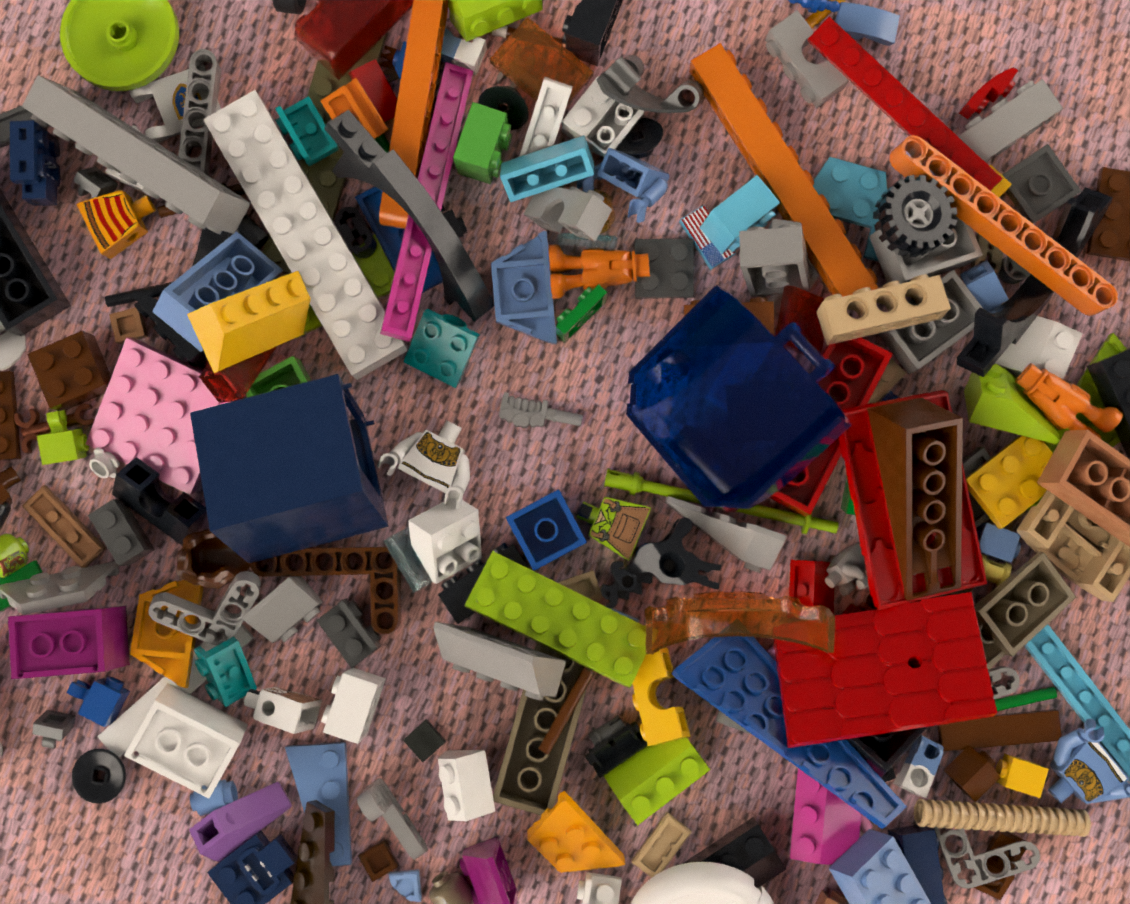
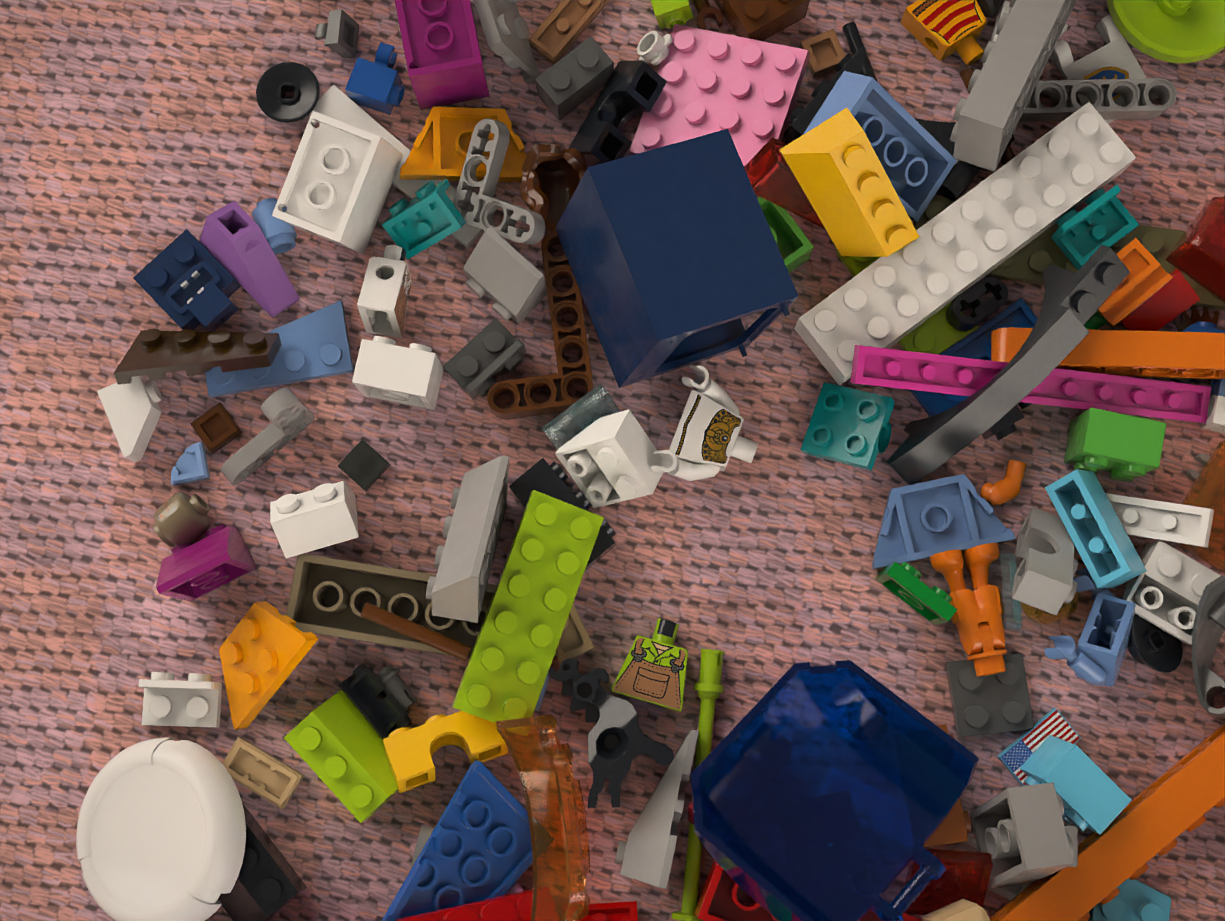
camera: 85 degrees right, 5 degrees down
(505, 230) = (1006, 488): none -> orange arm
(516, 106) = (1165, 482): black piece -> none
(533, 413) = (780, 550): light grey piece -> none
(546, 530) = (637, 582): blue brick -> none

